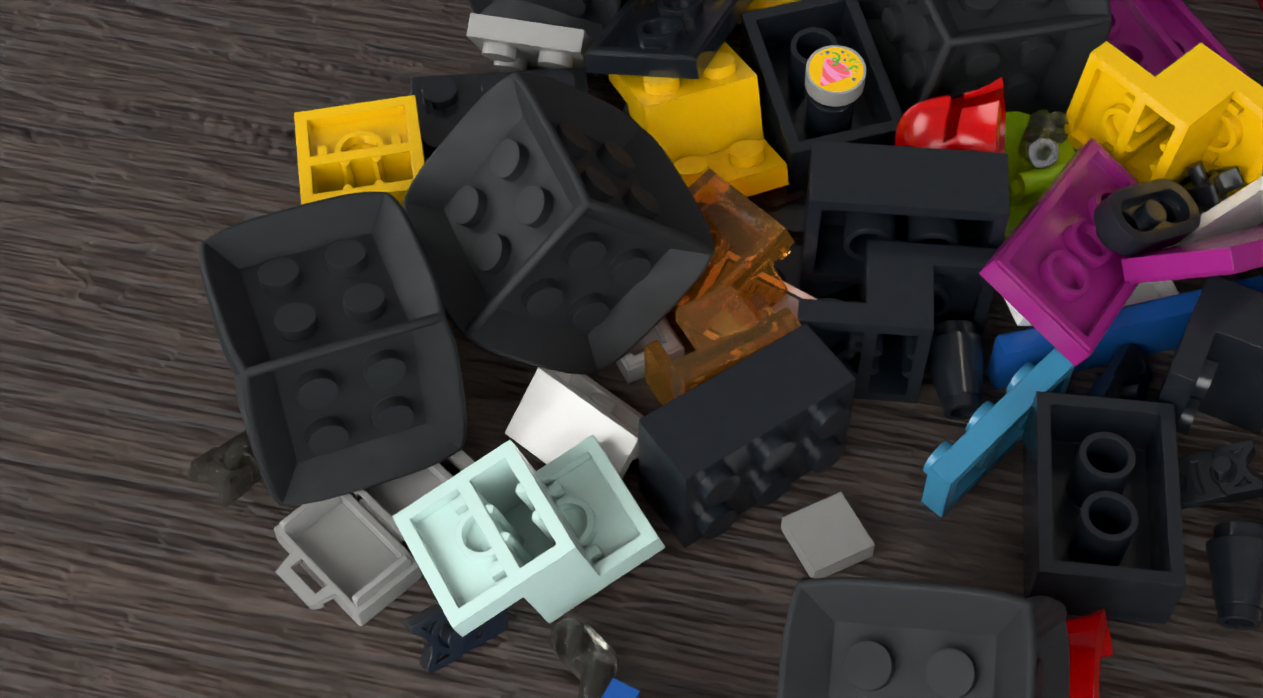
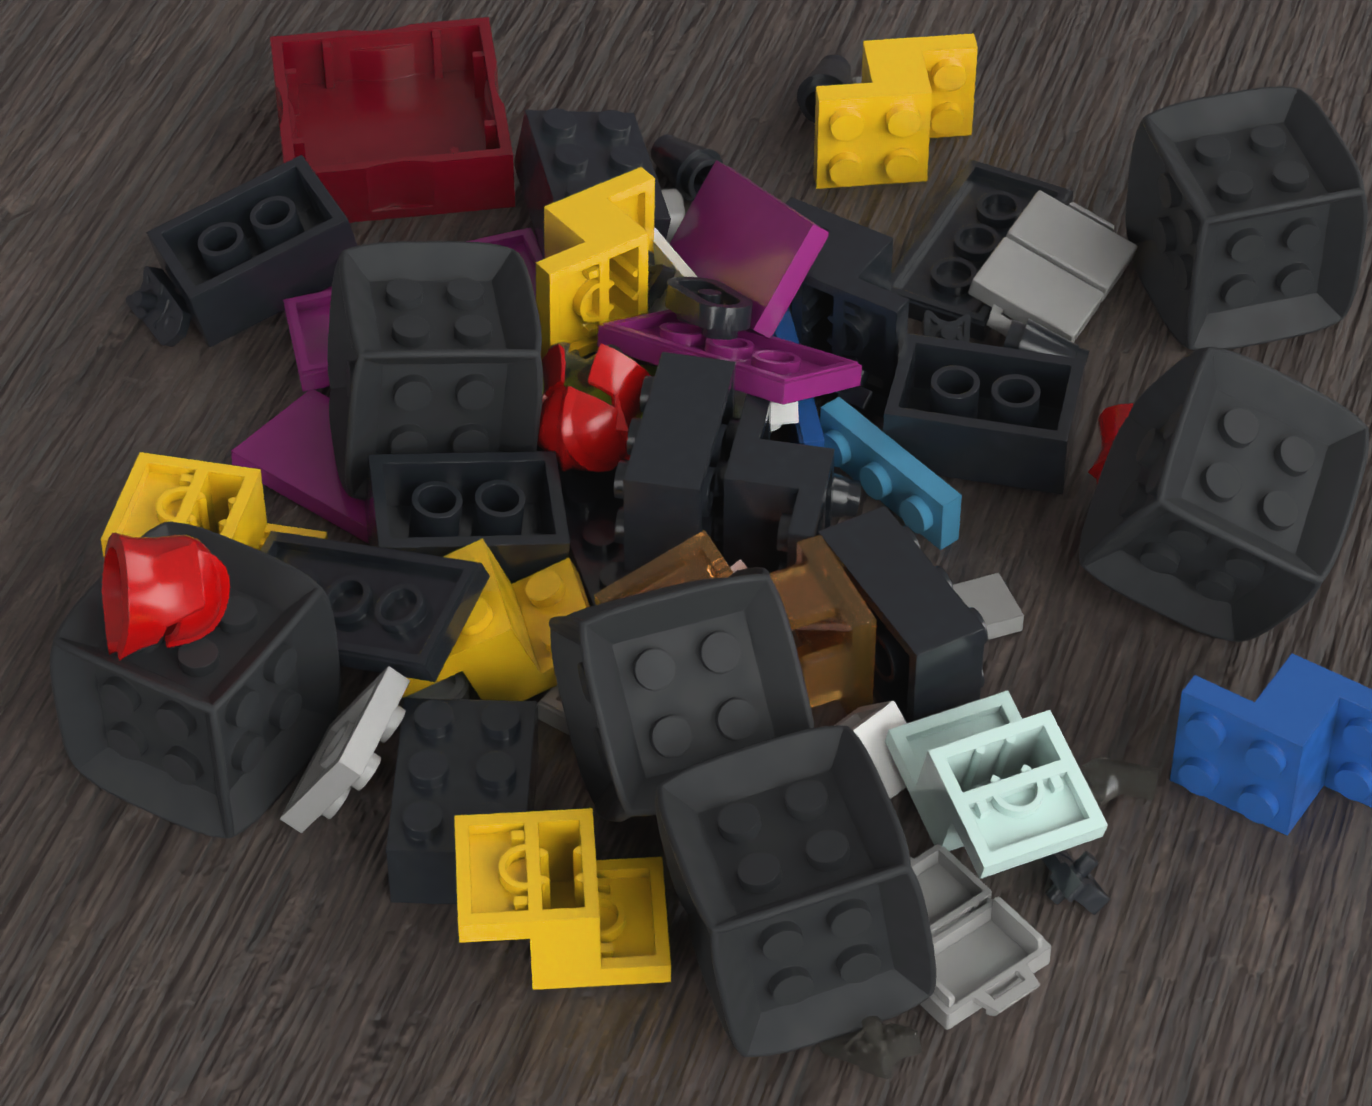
camera: 85 degrees left, 10 degrees down
(835, 75) = (491, 483): tile -> none

